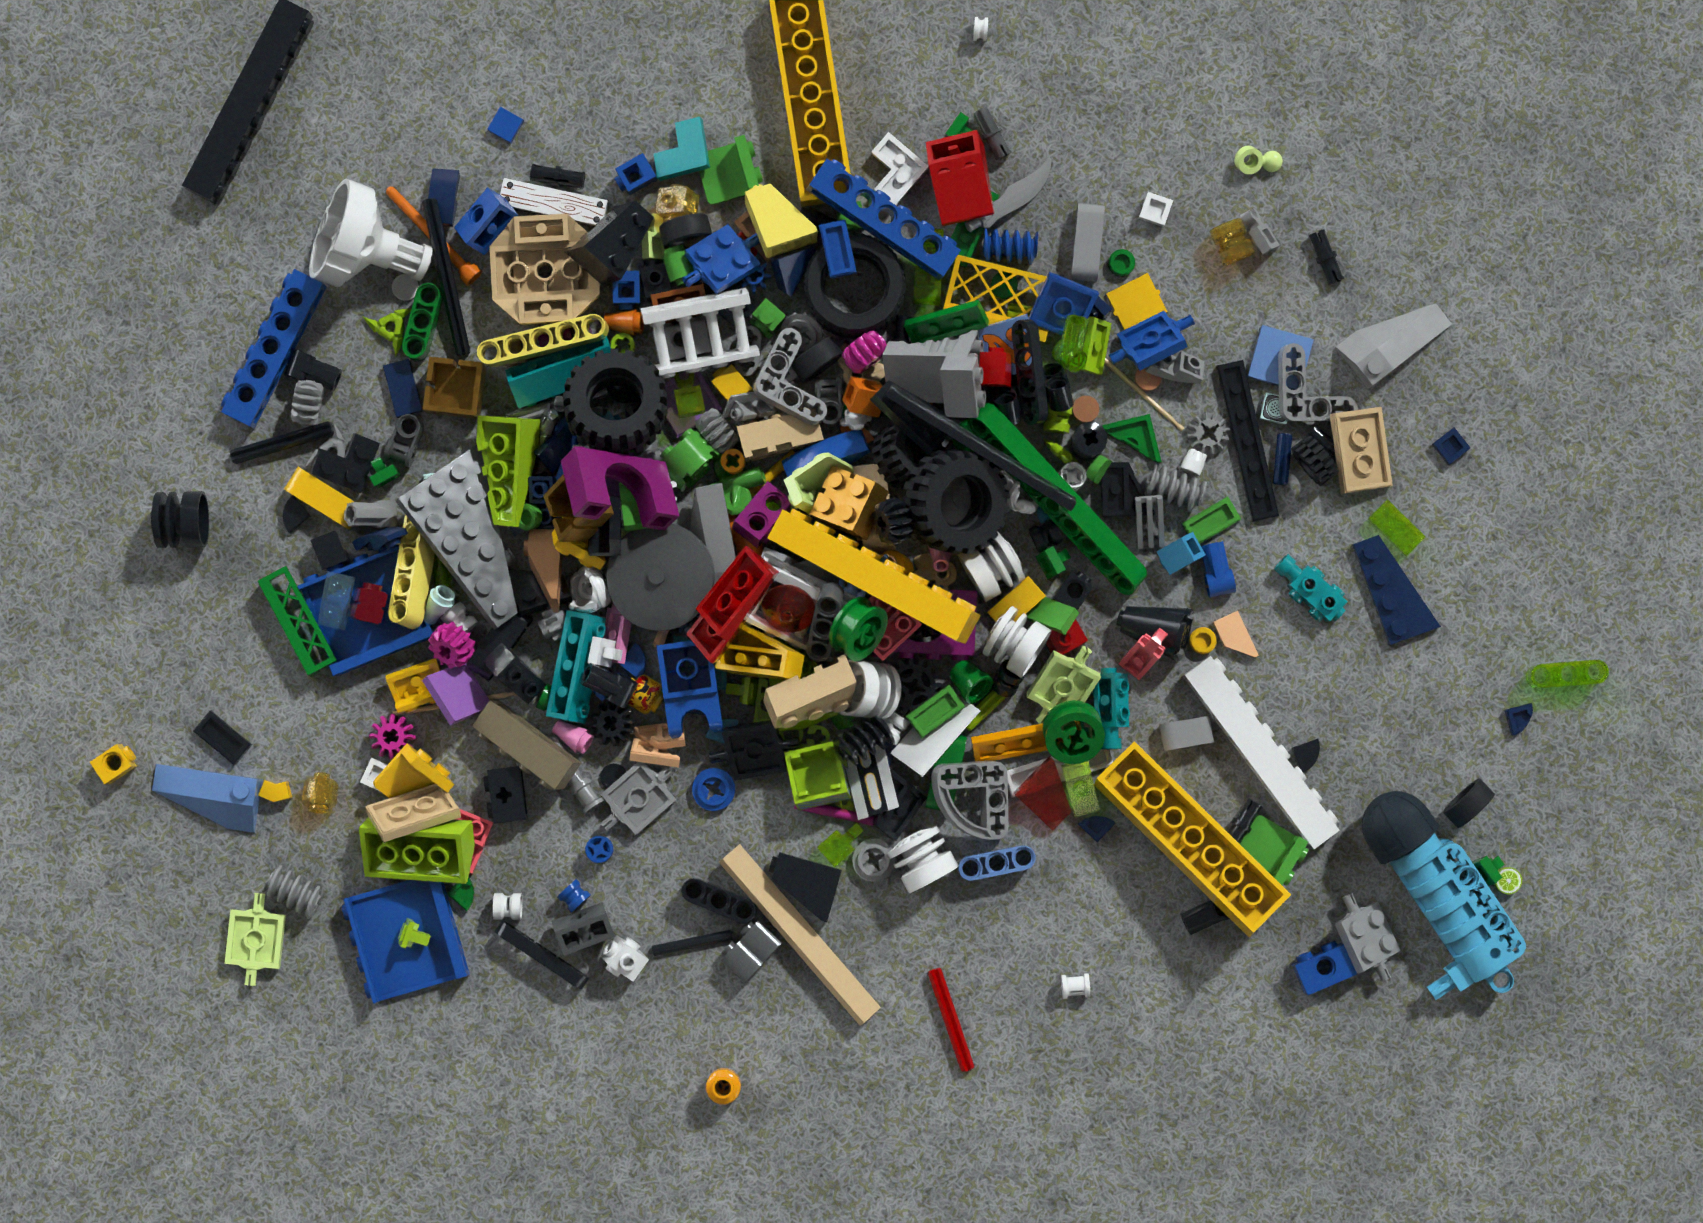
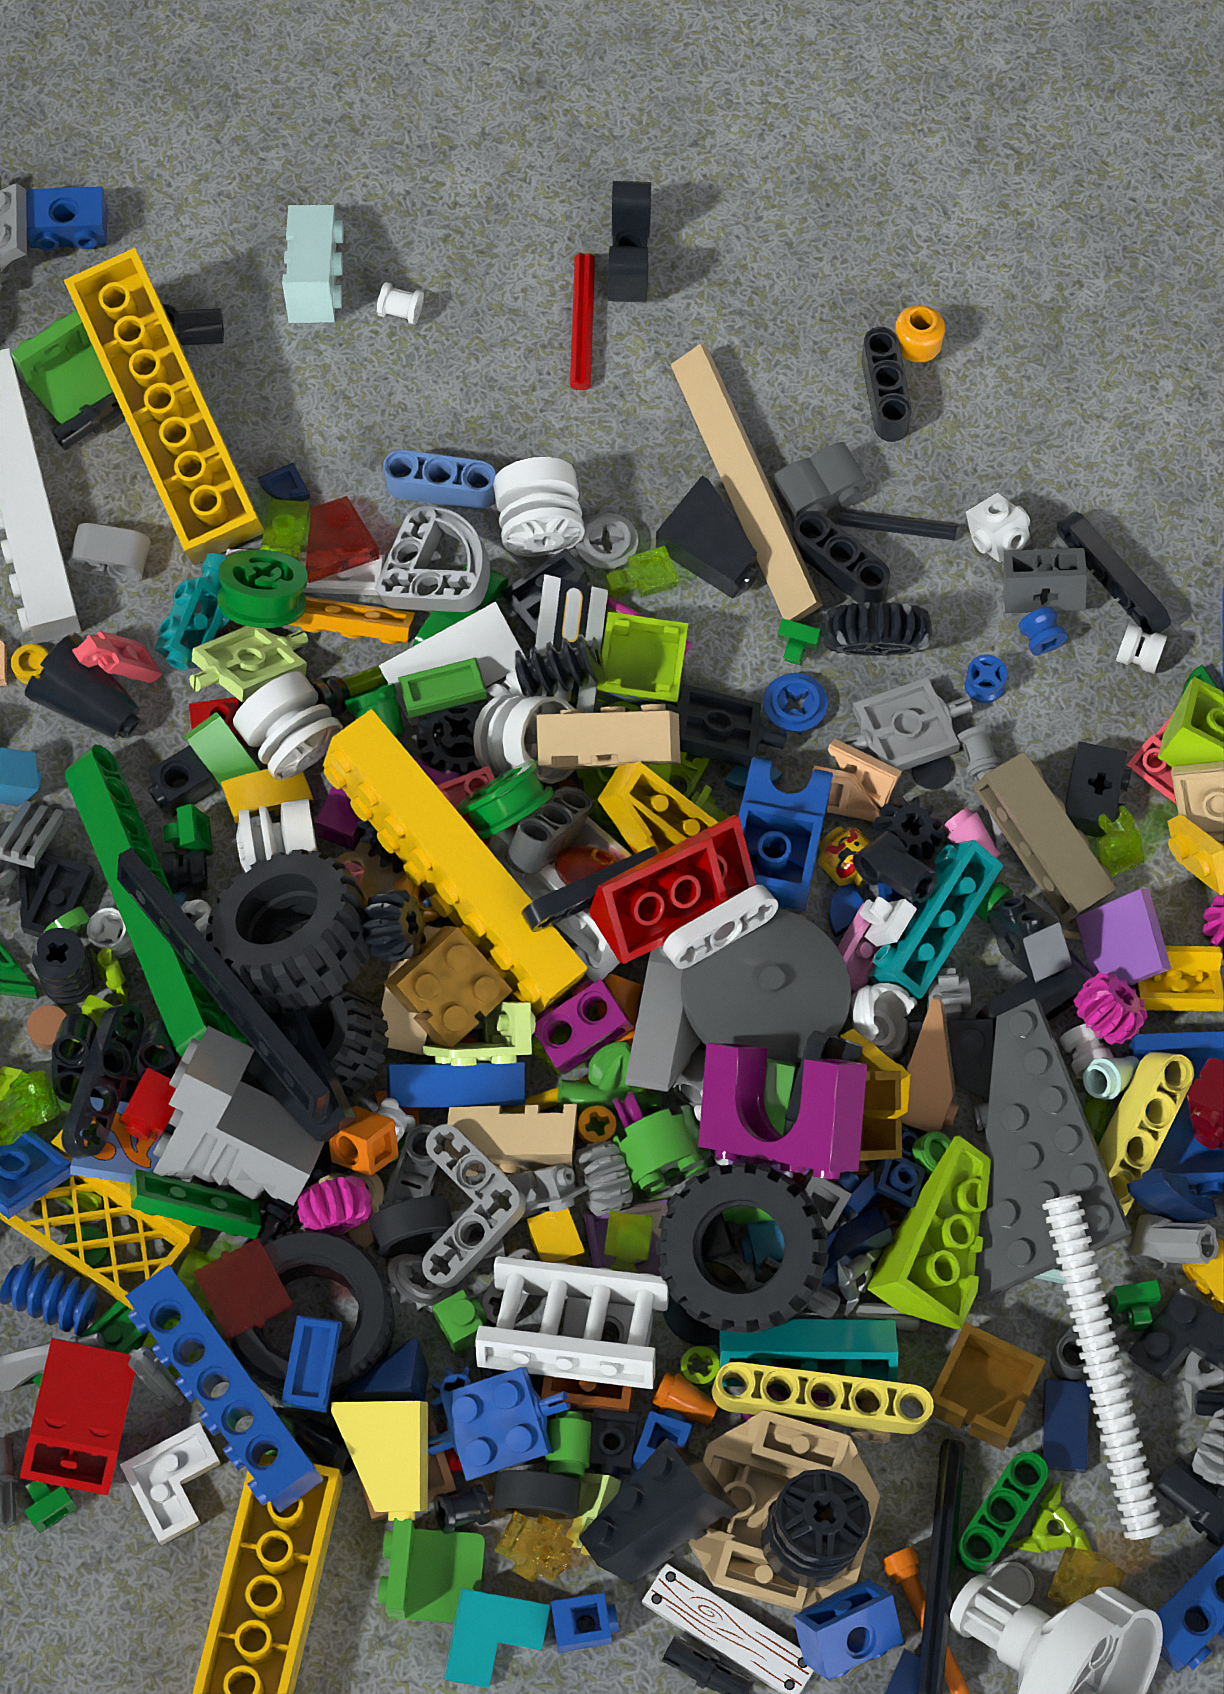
camera: 160 degrees left, 20 degrees down
(362, 296) = (1082, 1574): none -> clear yellow brick
(390, 419) = (1103, 1368): none -> white piece
(480, 760) = (1122, 845): none -> clear neon green plate
(532, 250) = (811, 1551): none -> black wheel
(676, 849) = (877, 629): none -> black gear
(697, 594) = (720, 926): none -> white beam
(716, 474) = (628, 1110): none -> magenta bush
(726, 212) = (462, 1509): none -> black bush
(726, 833) = (798, 638): none -> green tile
(733, 1055) = (889, 369): none -> black beam
(780, 586) = (577, 895): none -> black beam
(895, 278) = (243, 1289): none -> clear red piece
(932, 217) = (156, 1377): none -> dark grey axle
(943, 1100) = (630, 238): none -> black beam
(1145, 994) = (312, 263): none -> light aqua wedge

